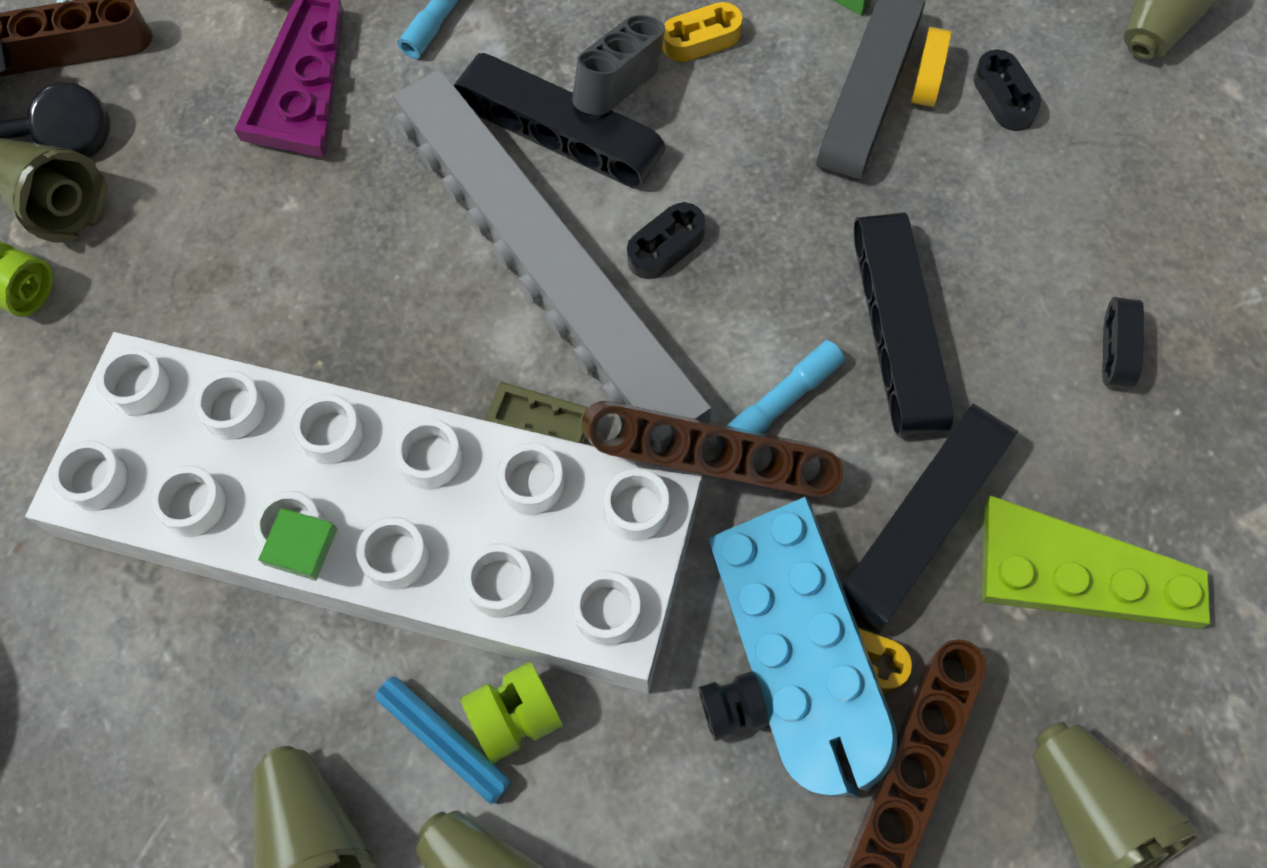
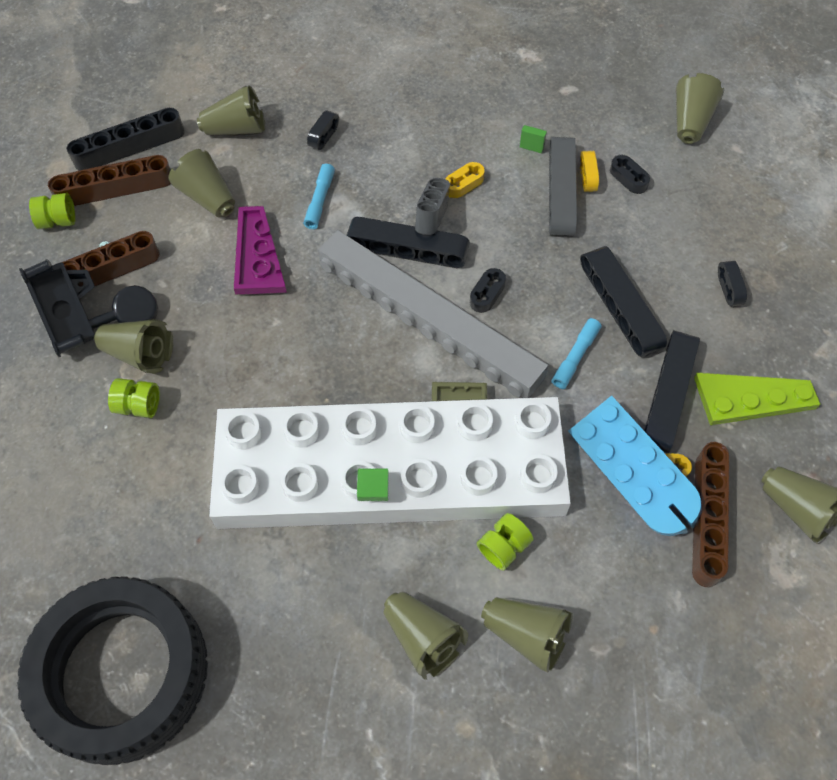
camera: 20 degrees left, 5 degrees down
(443, 740) = (472, 567): dark azure axle -> none
(720, 706) = (612, 507): black wheel -> none
(736, 456) = (546, 383): reddish brown beam -> none

